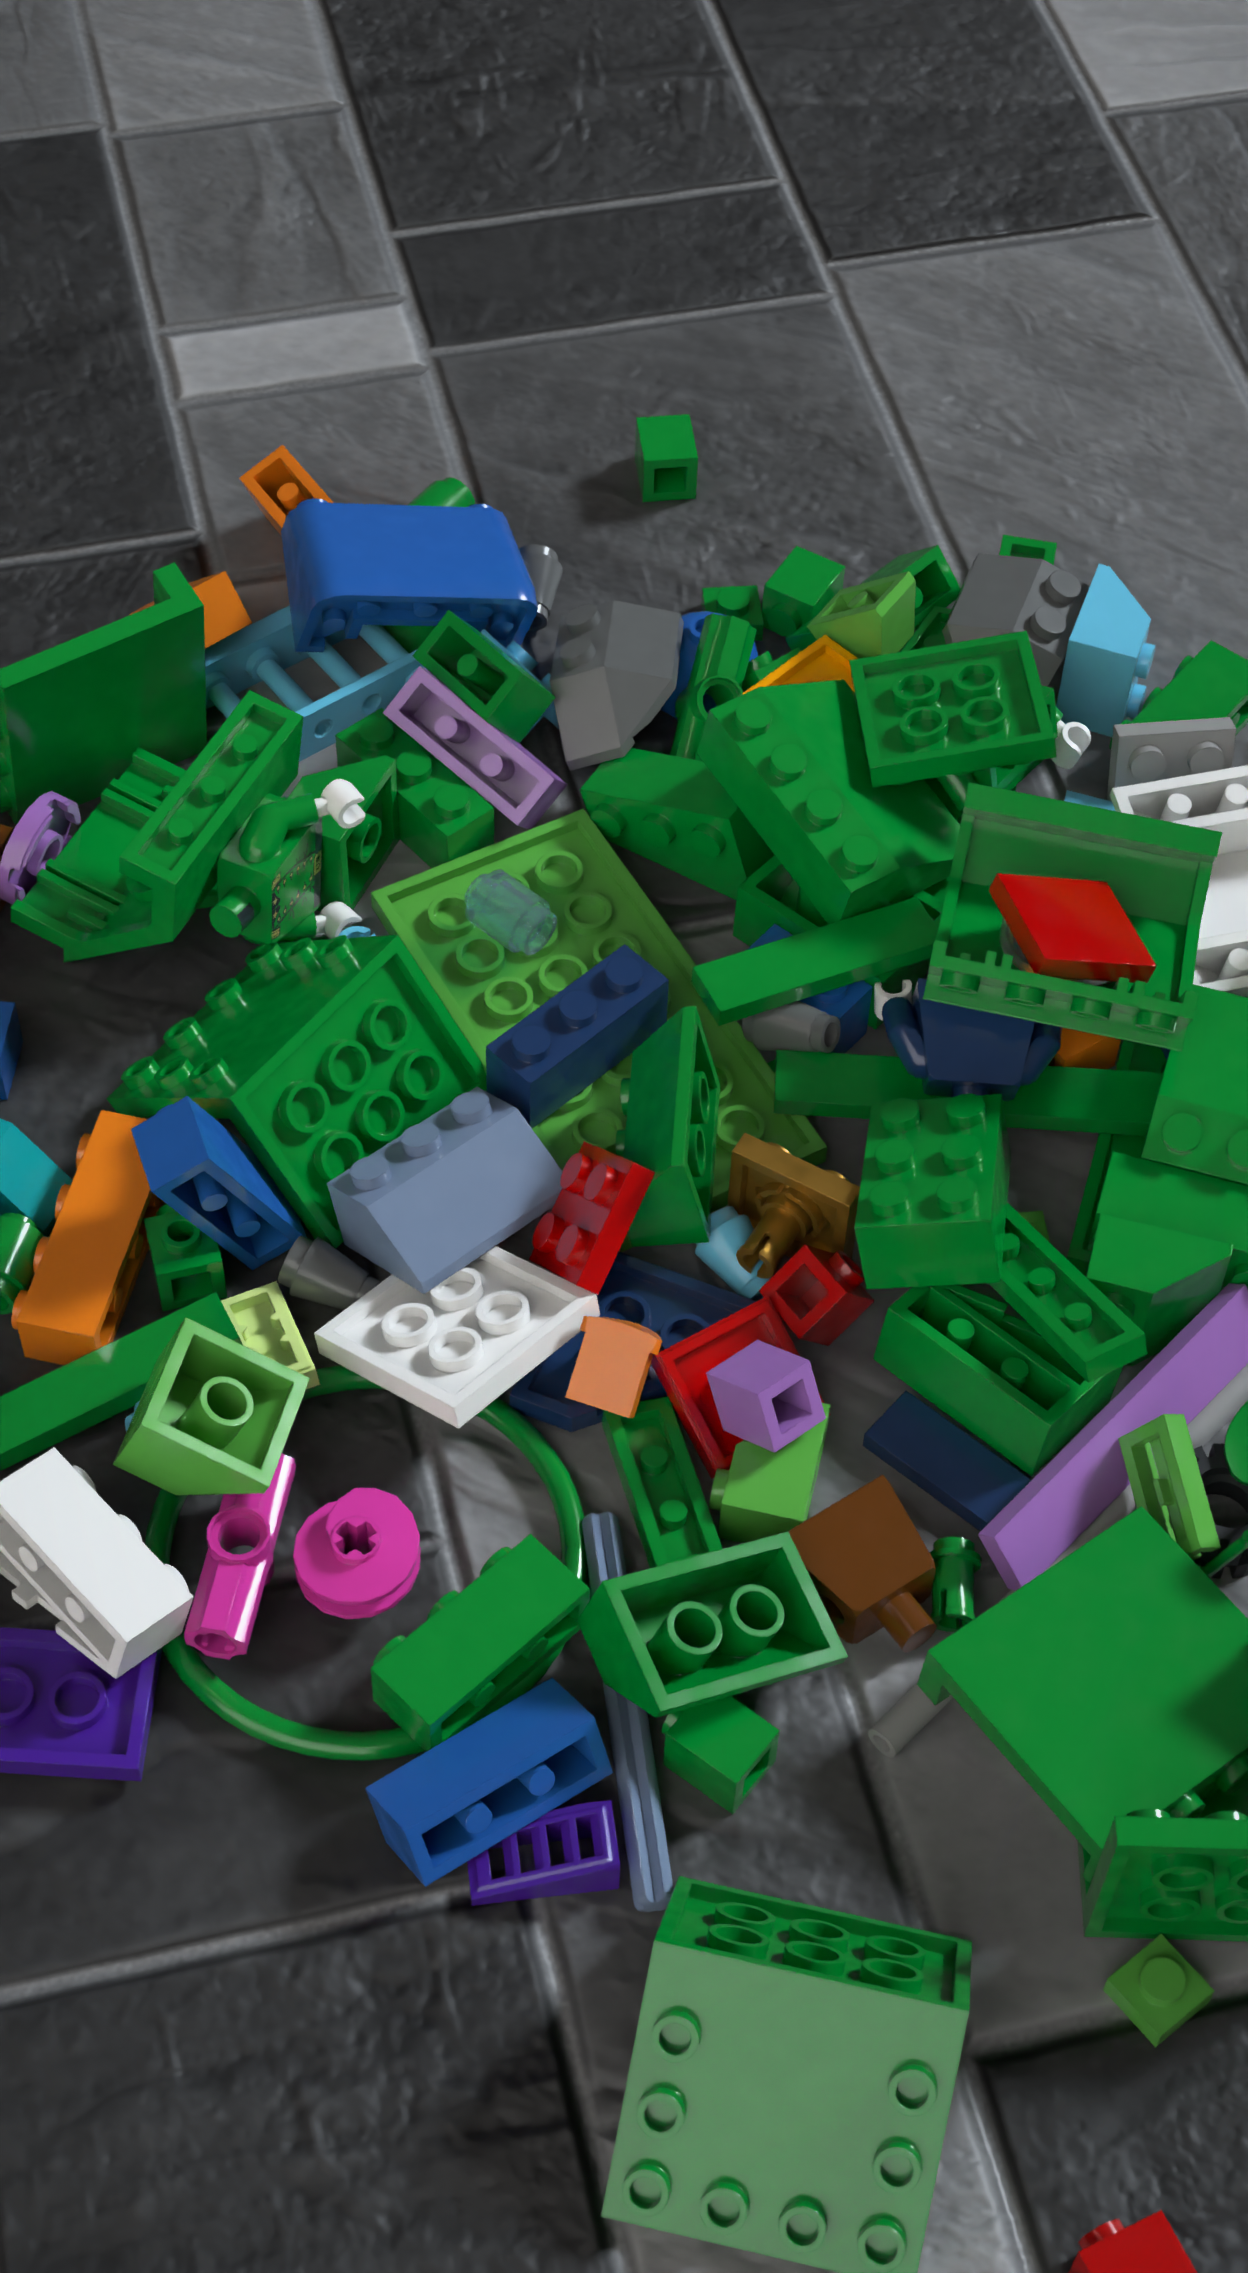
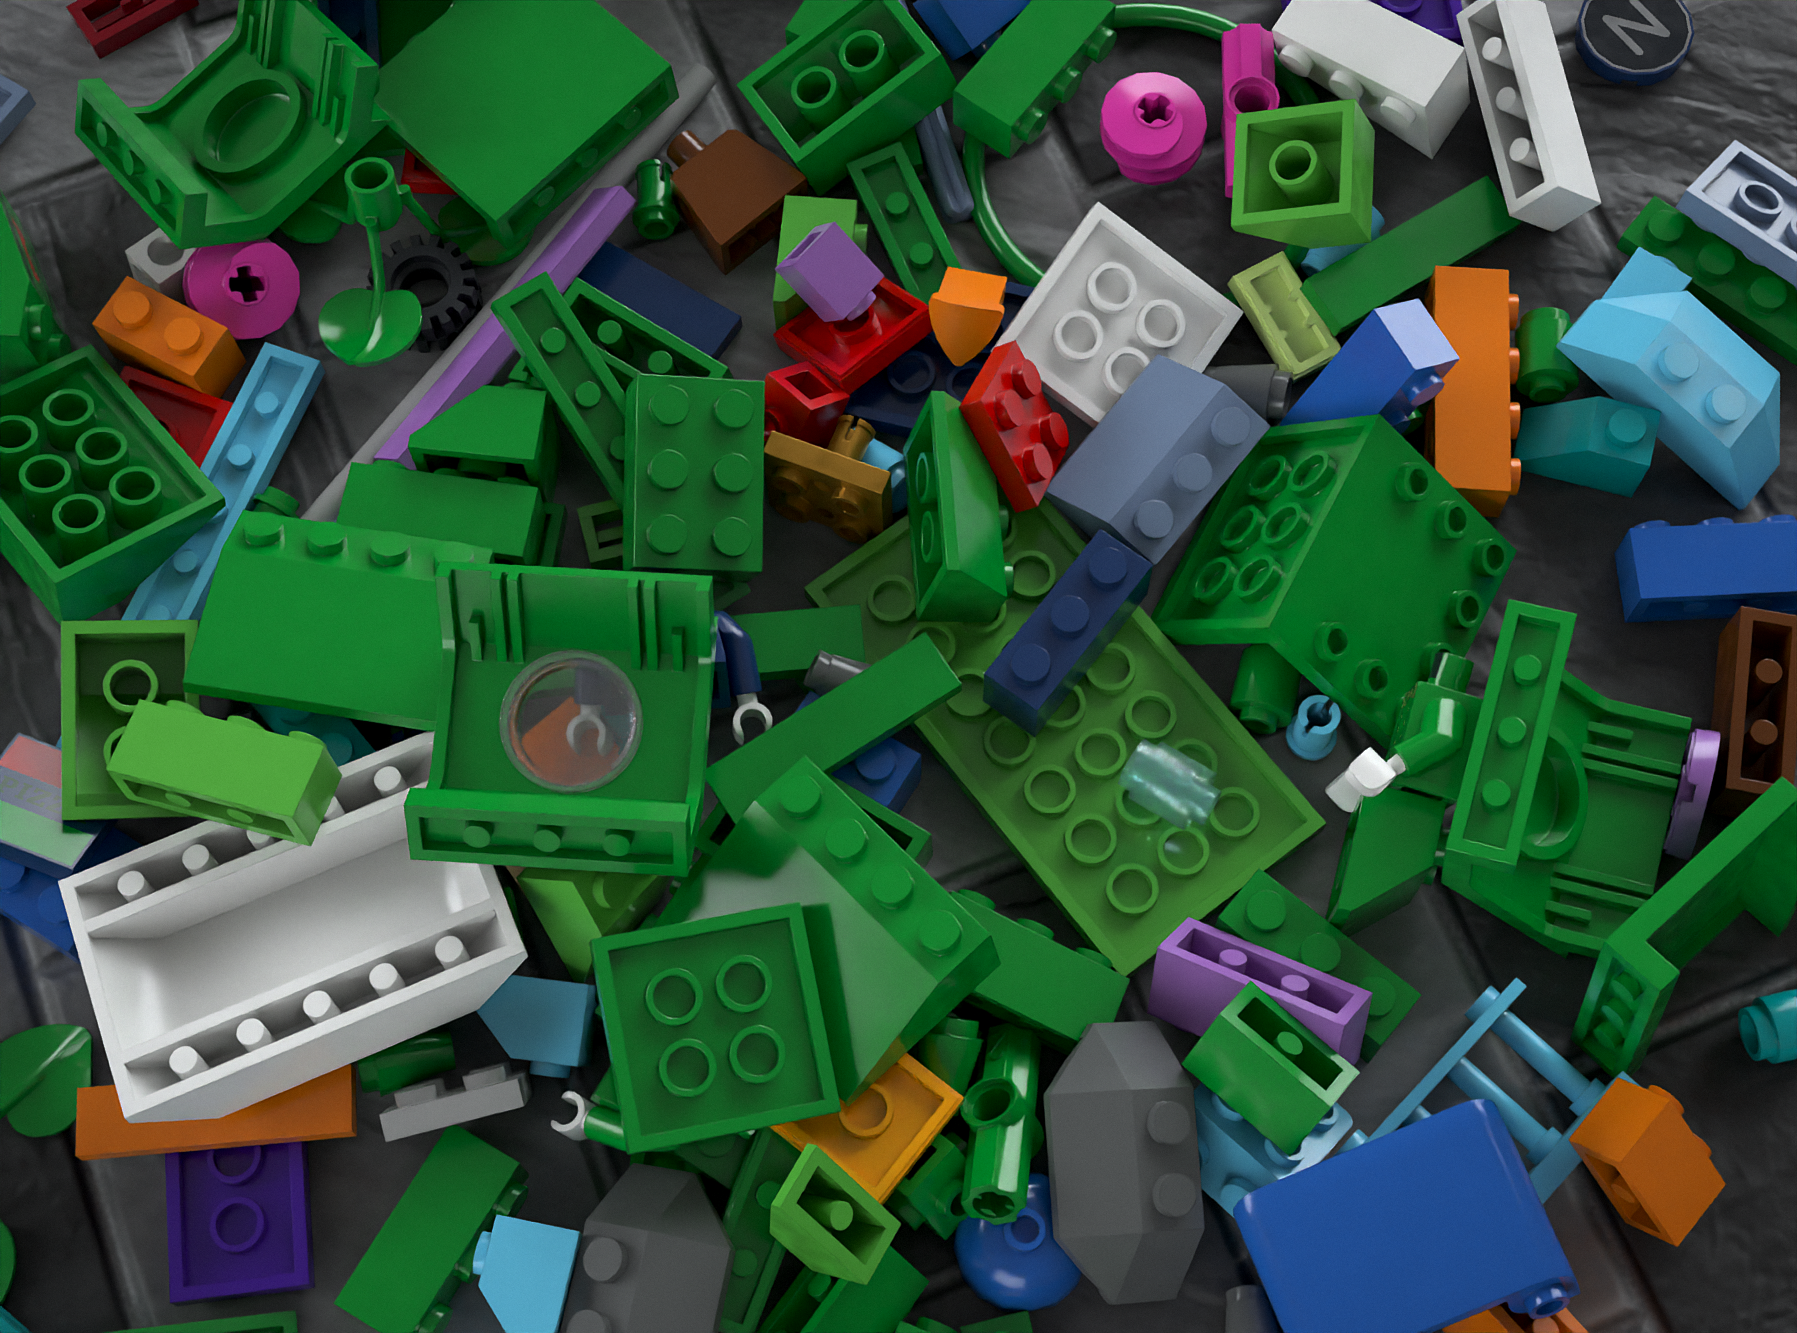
camera: 175 degrees right, 15 degrees up
(1071, 928) = (566, 688): red tile -> none
(1179, 1482) = (469, 251): bright green tile -> none

